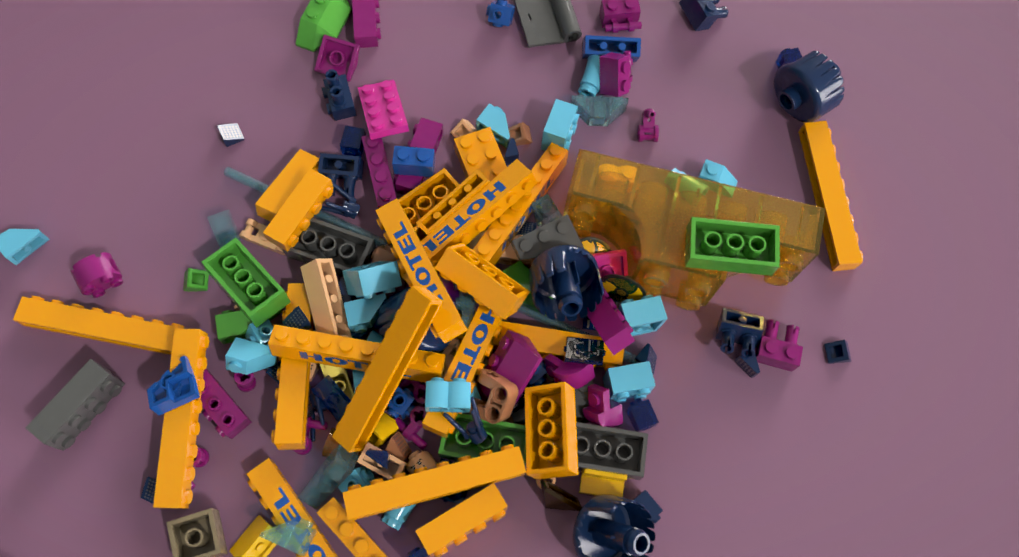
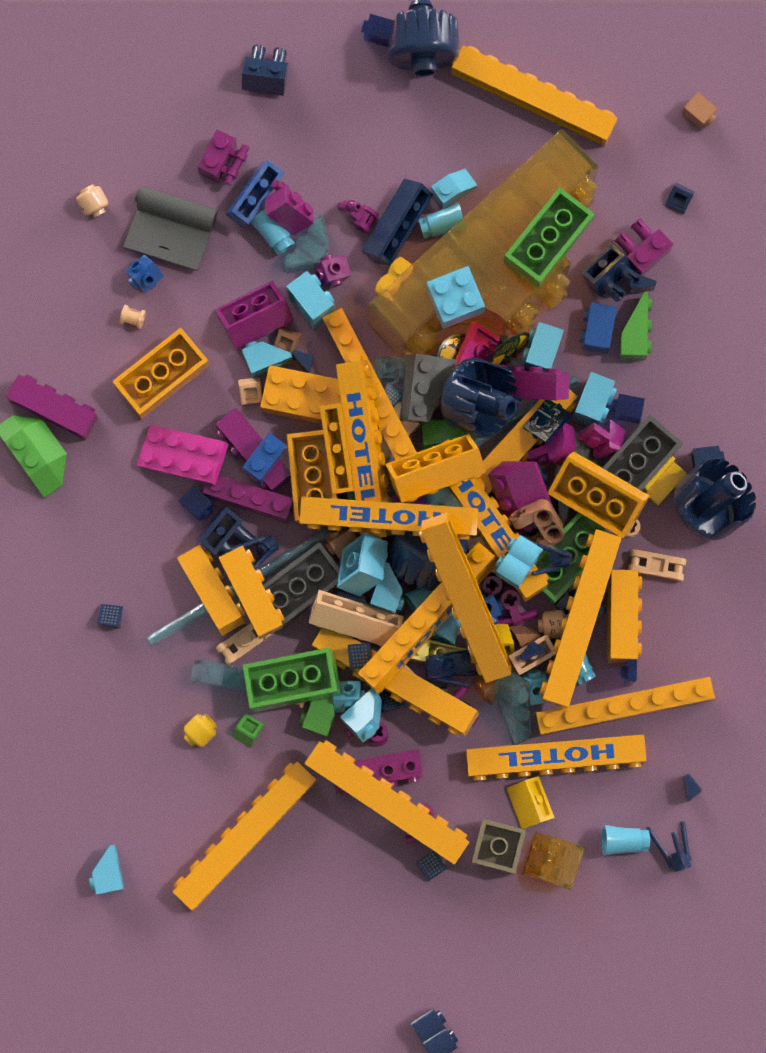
camera: 55 degrees left, 10 degrees up
(75, 406) = (313, 891): dark grey brick -> none
(96, 274) = (192, 813): magenta brick -> none
(173, 244) = (200, 730): none -> yellow head
(173, 388) = (362, 790): blue slope -> none
(292, 535) = (549, 763): clear light blue slope -> none
(337, 55) = (91, 466): magenta slope -> none
(339, 96) = (138, 489): dark blue brick -> none
(435, 62) = (161, 373): none -> light orange brick
(465, 24) = (132, 316): none -> light nougat bush
(521, 101) = (254, 314): none -> magenta slope
(527, 523) = (657, 565): none -> light nougat plate
(558, 498) = (653, 526): dark brown slope -> none
(592, 131) = (332, 271): none -> magenta brick
(630, 204) = (455, 297): none -> medium azure brick
(647, 354) = (581, 369): dark blue slope -> none
(664, 153) = (397, 222): none -> dark blue brick
(690, 351) = (598, 328): none -> blue brick
(704, 382) = (634, 338): none -> bright green slope
(916, 323) = (700, 111): none -> nougat brick

